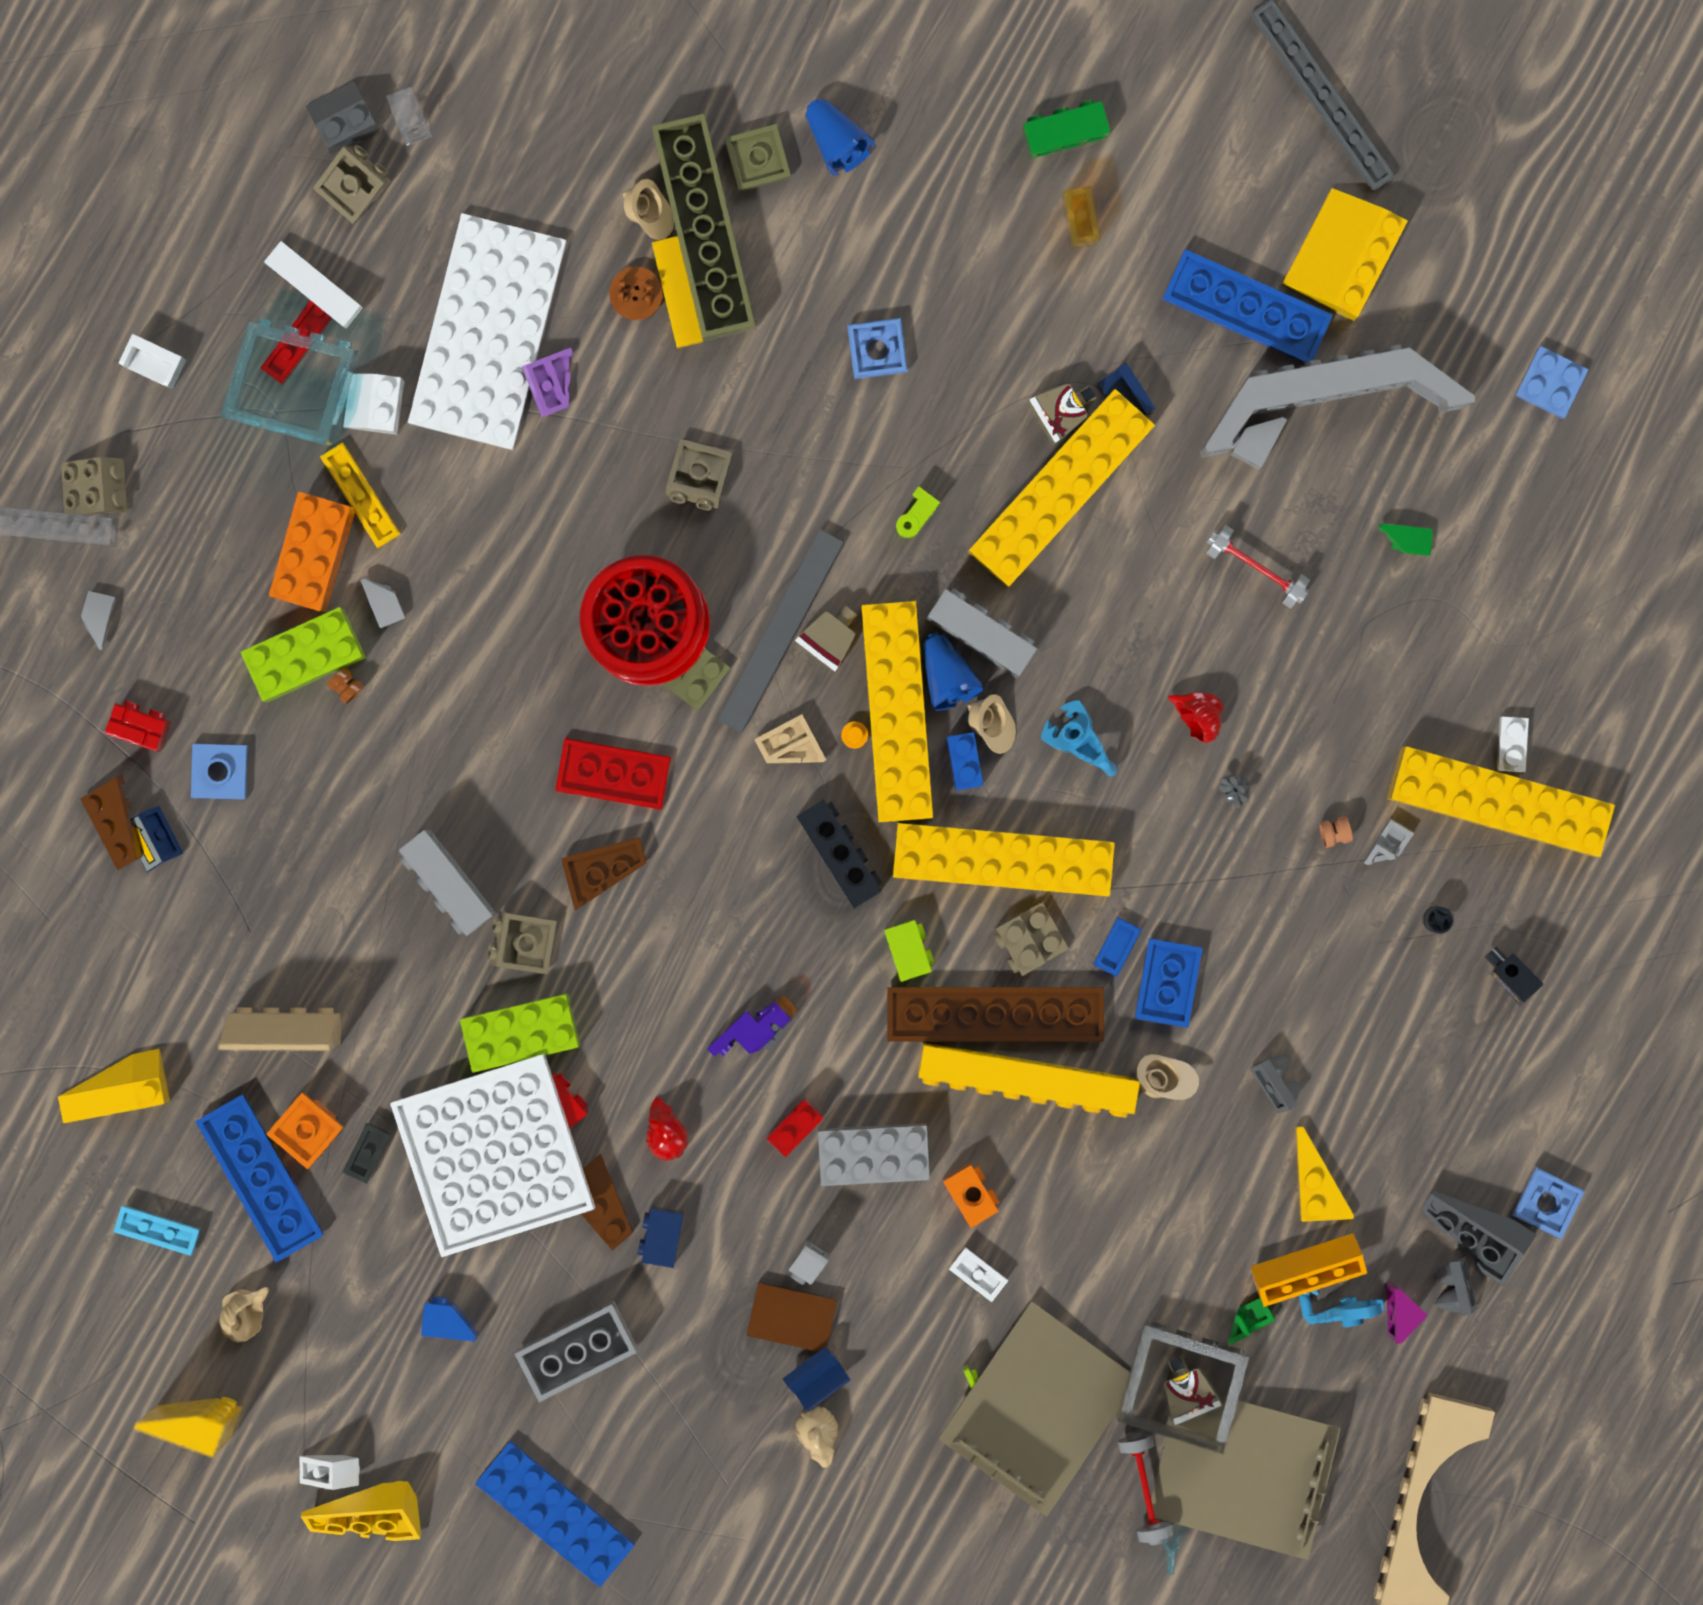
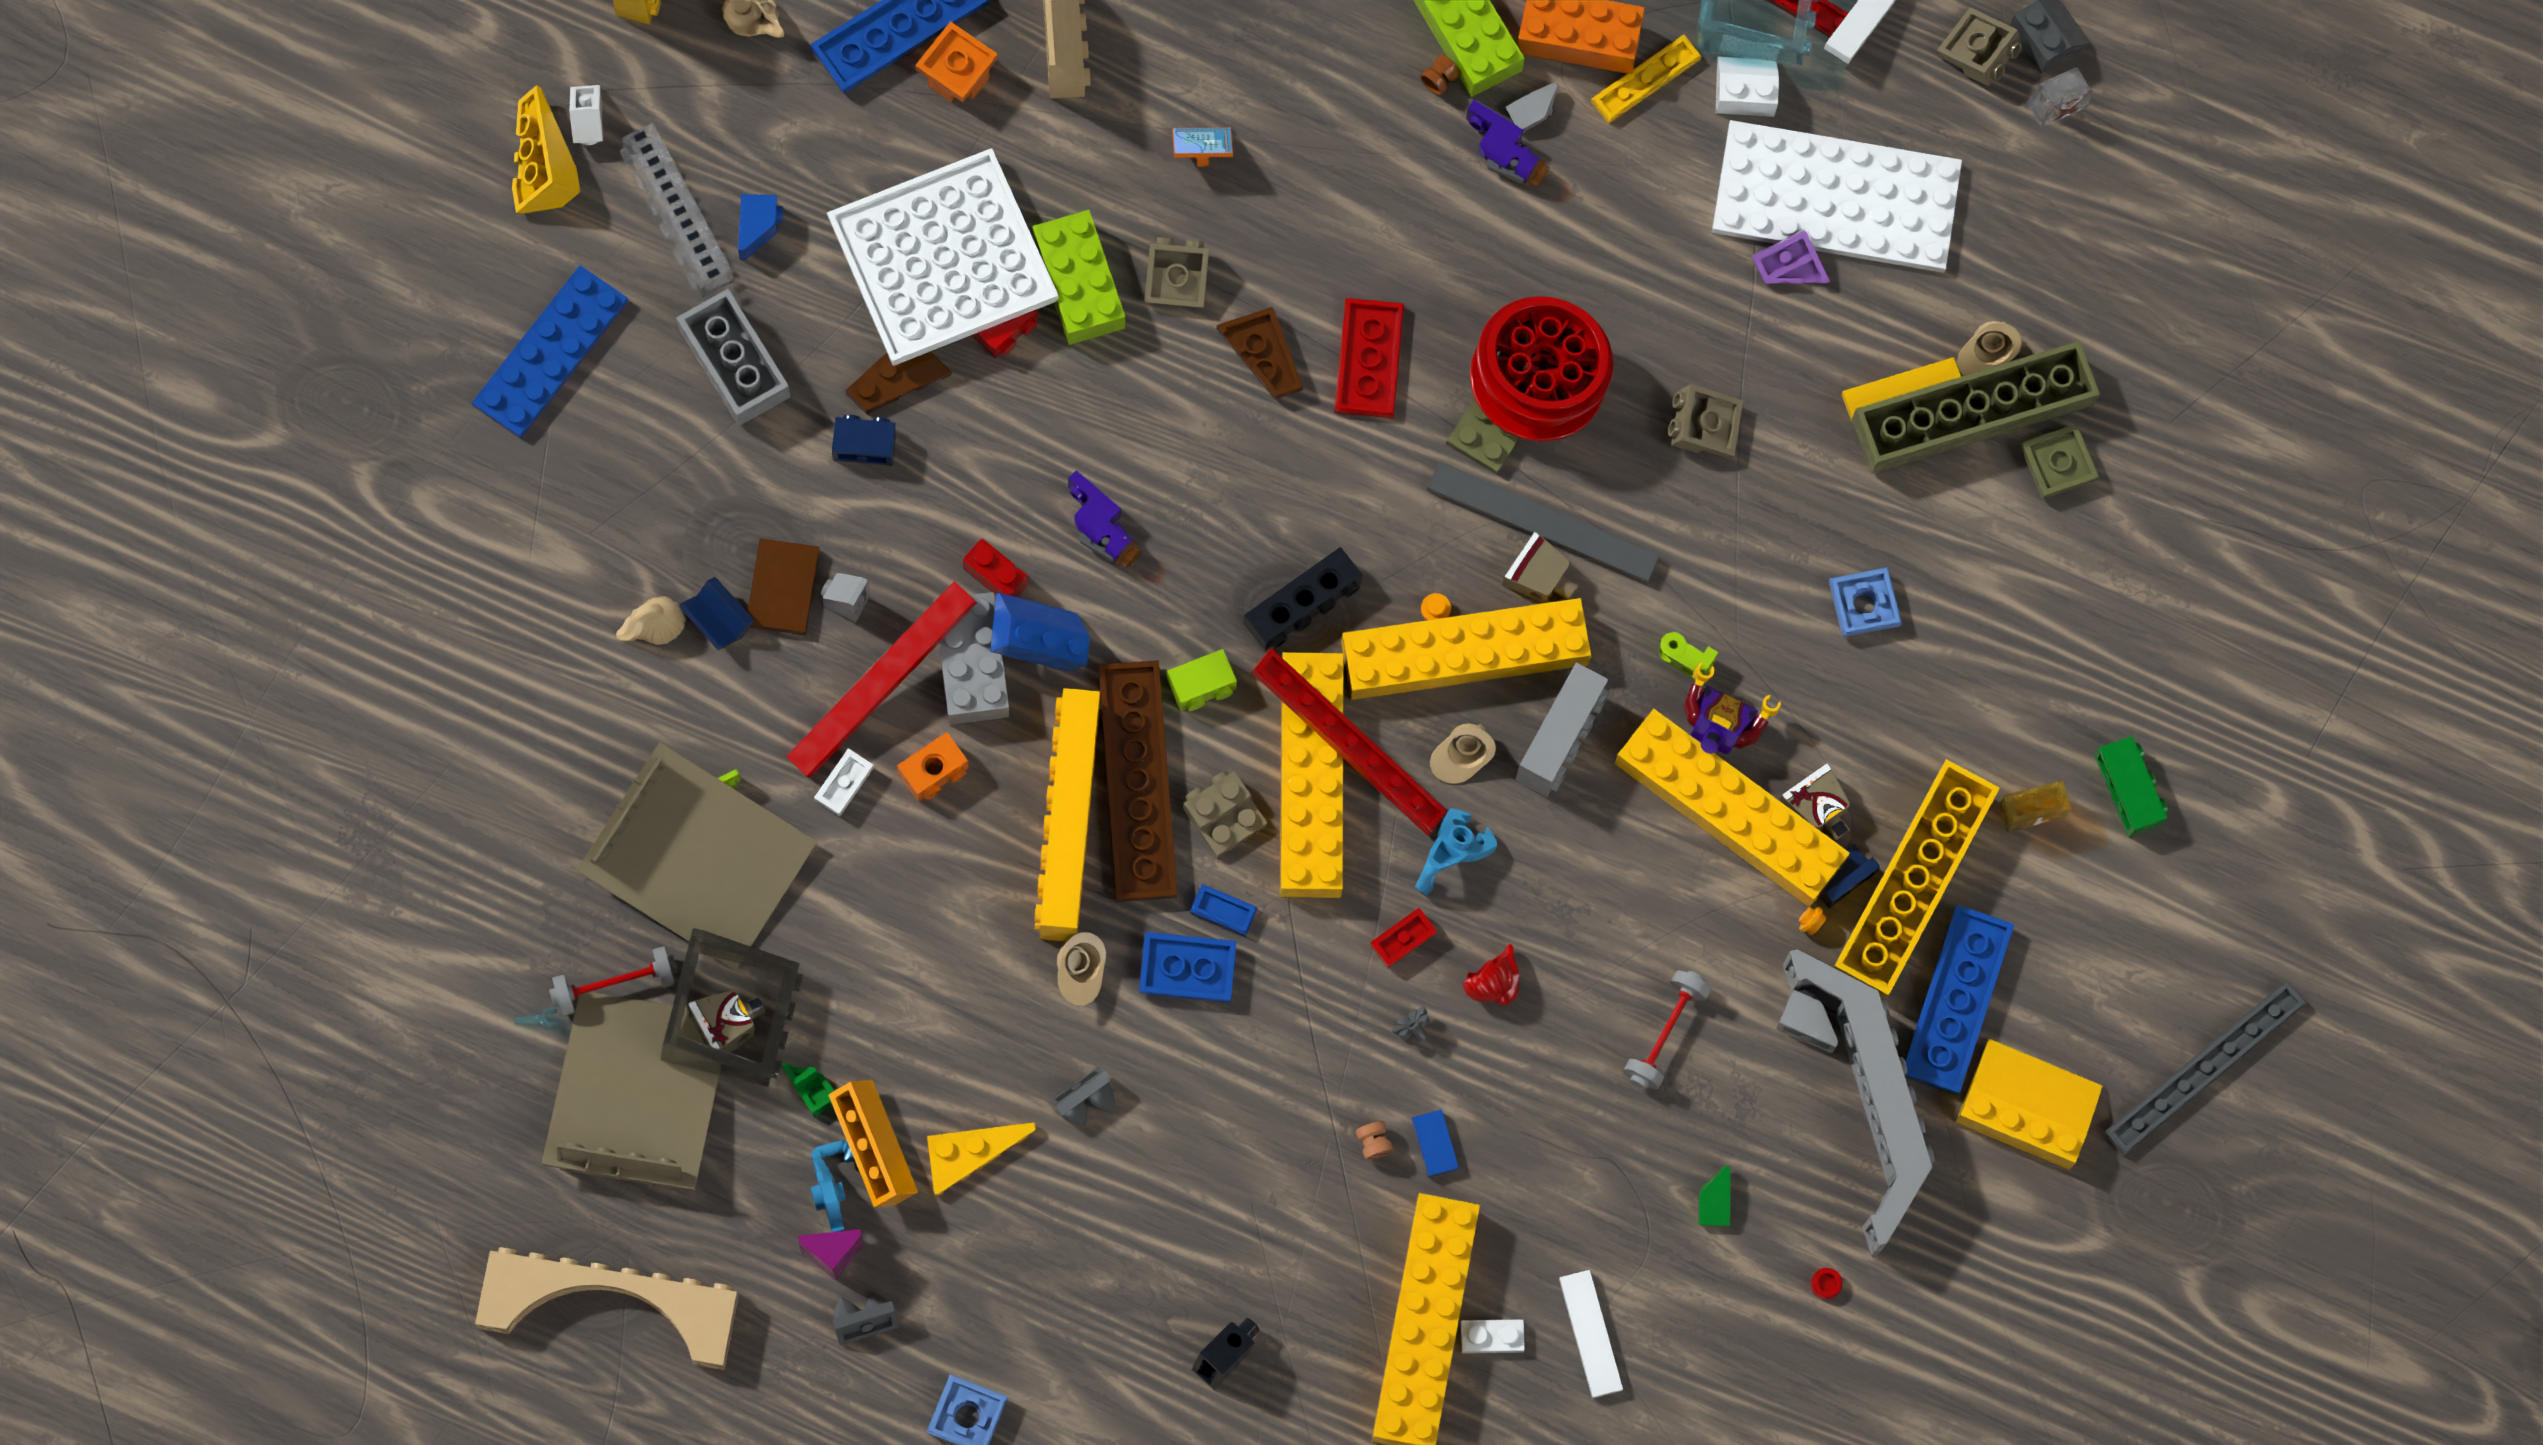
camera: 80 degrees right, 15 degrees down
(366, 1153) = (934, 130): pearl dark grey plate -> none
(398, 910) = (1202, 143): none -> piece
(424, 634) = (1502, 147): none -> dark purple plate
(428, 1393) = (677, 210): none -> clear brick
(447, 882) = (1236, 188): light grey brick -> none
(649, 293) = (1894, 358): dark orange plate -> none
(665, 1133) = (979, 437): red hair -> none
(790, 743) = (1420, 540): tan wing -> none
(837, 137) = (2090, 542): blue cone -> none
(857, 1093) = (1039, 634): none -> blue slope
(890, 1236) = (881, 679): none -> red tile
(948, 673) = (1512, 699): blue cone -> none
(964, 761) = (1417, 725): blue brick -> none
(981, 490) = (1721, 720): none -> torso
(981, 825) = (1349, 741): none -> red tile
(1140, 332) = (1916, 878): none -> yellow brick
(1155, 790) = (1403, 938): none -> red plate
(1167, 428) = (1811, 920): none -> light orange plate
(1340, 779) = (1435, 1143): none -> blue tile
(1389, 842) = (1366, 1205): light grey slope -> none
(1442, 918) = (1283, 1257): black wheel -> none
(1487, 1237) = (924, 1348): dark grey wedge -> none
(1488, 449) = (1826, 1283): none -> red tile
(1517, 659) = (1590, 1334): none -> white tile
(1551, 382) = (1911, 1349): medium blue plate -> none

